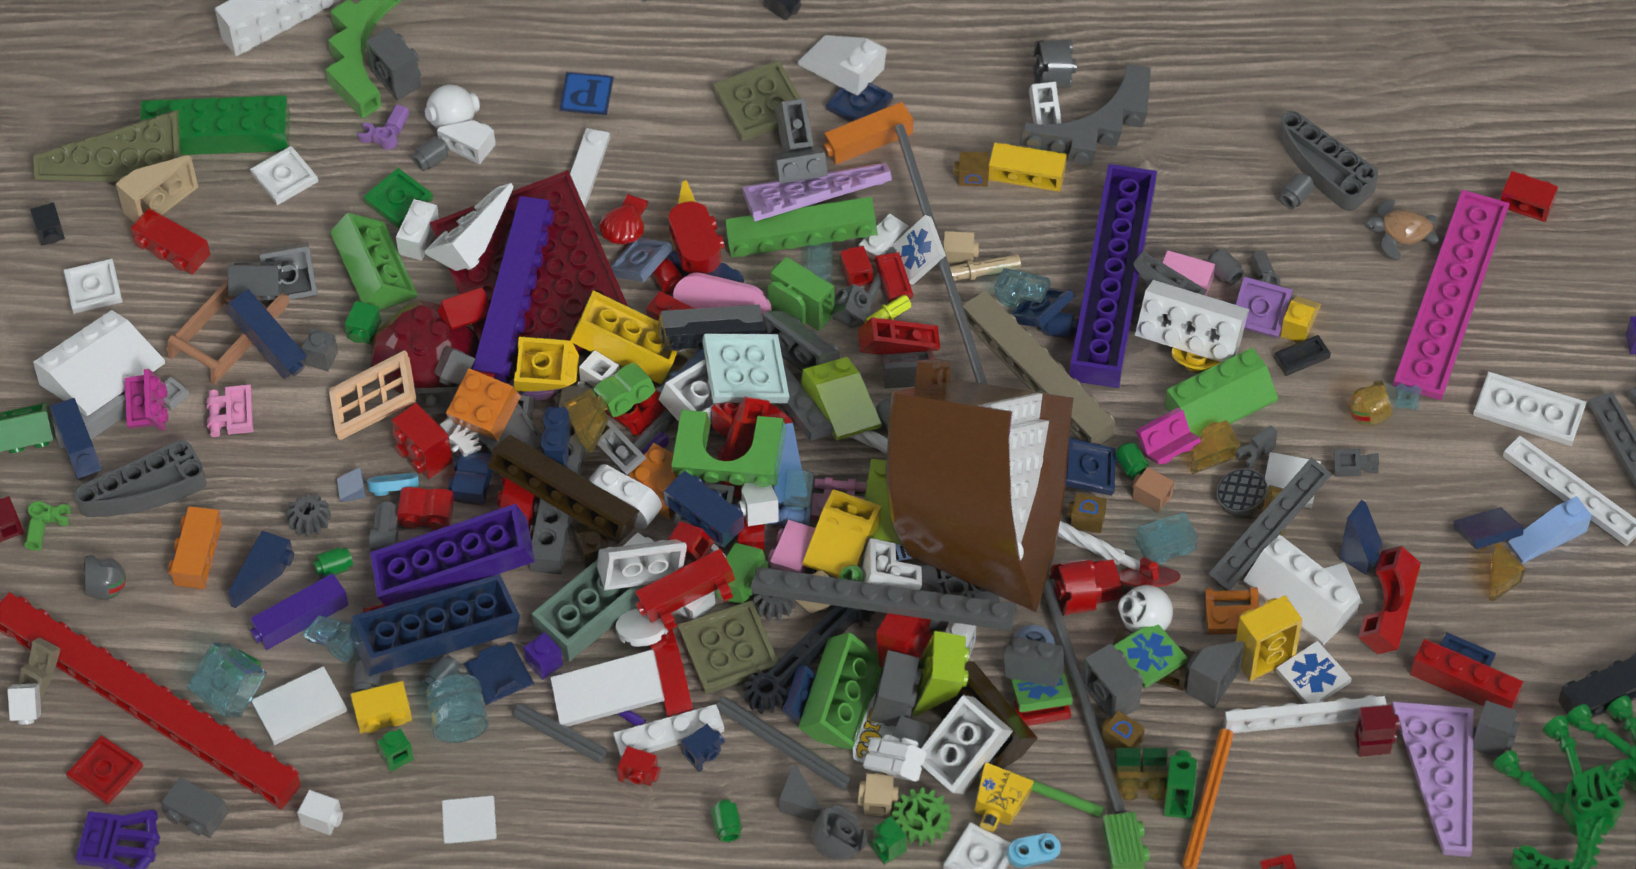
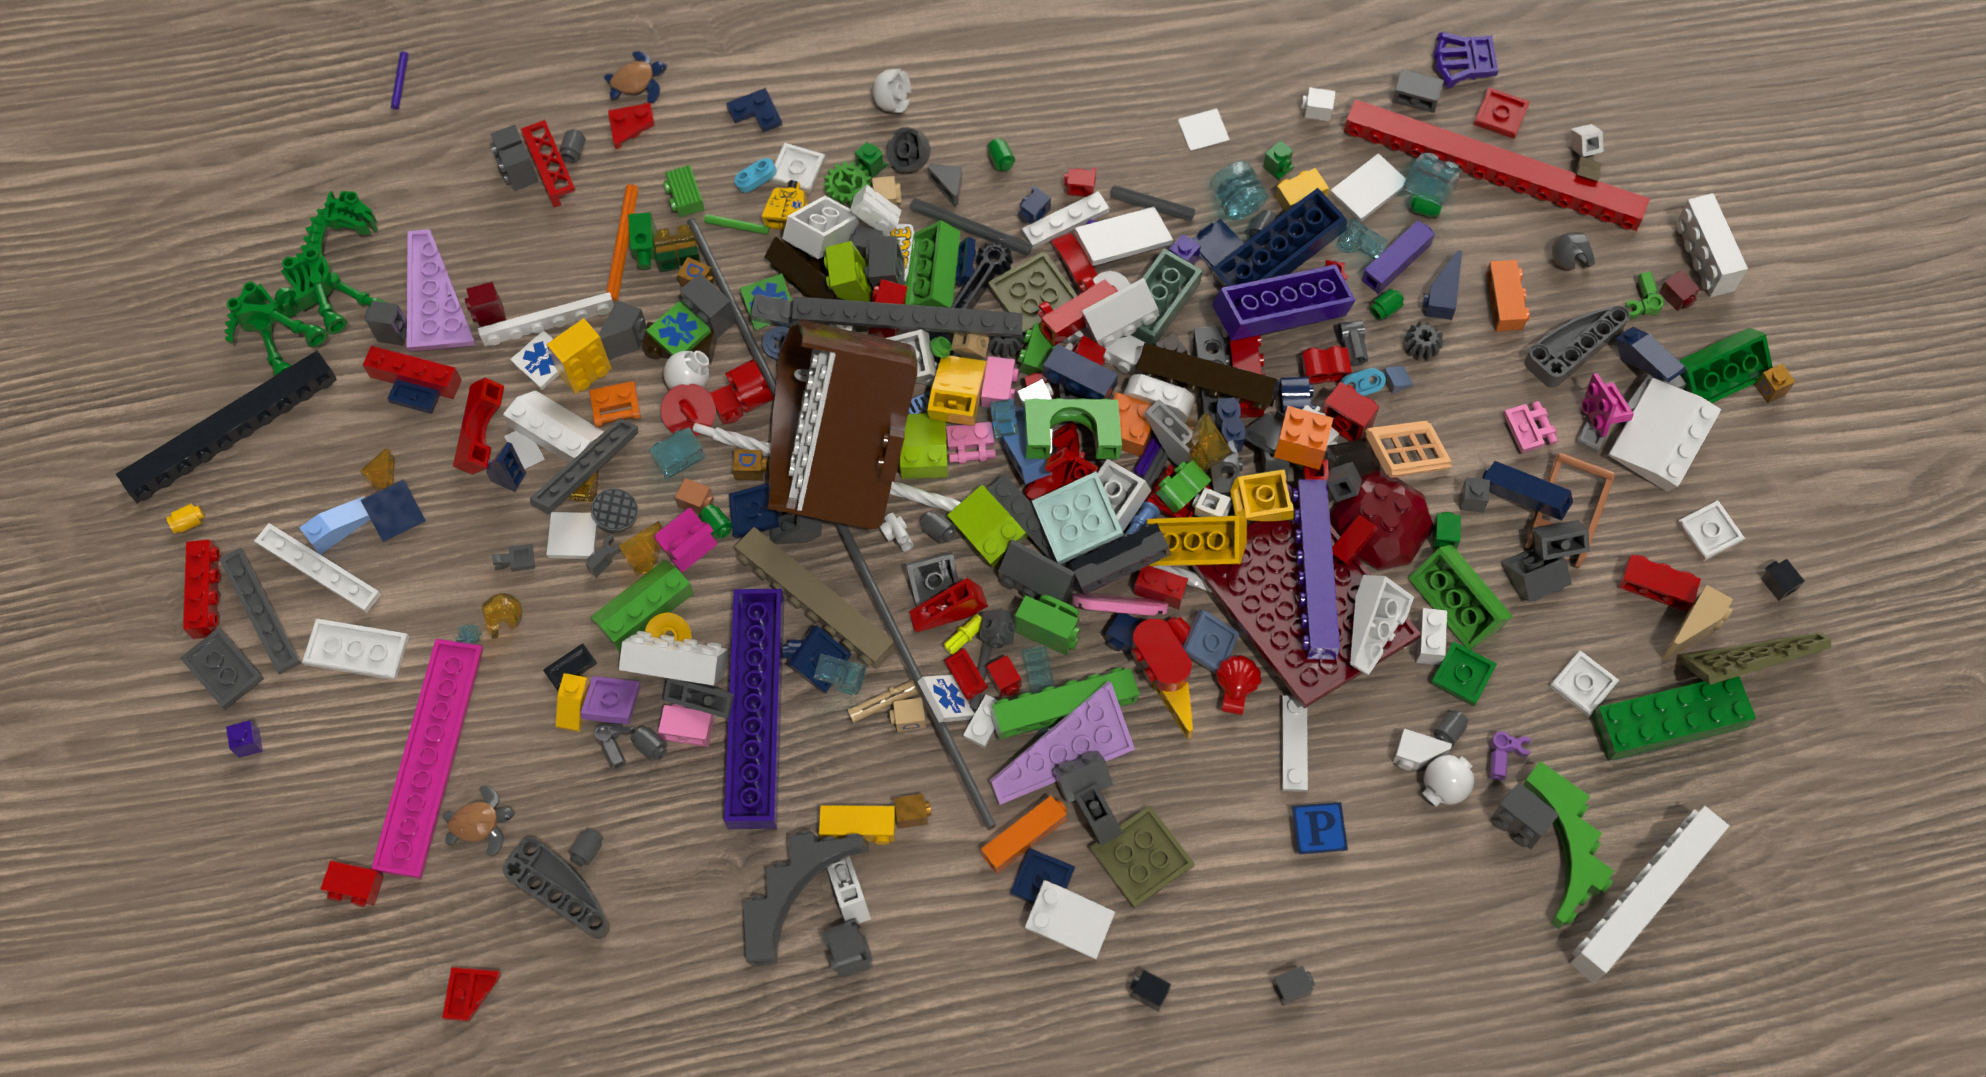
camera: 170 degrees right, 10 degrees up
(1416, 97) = (467, 992): none -> red wing

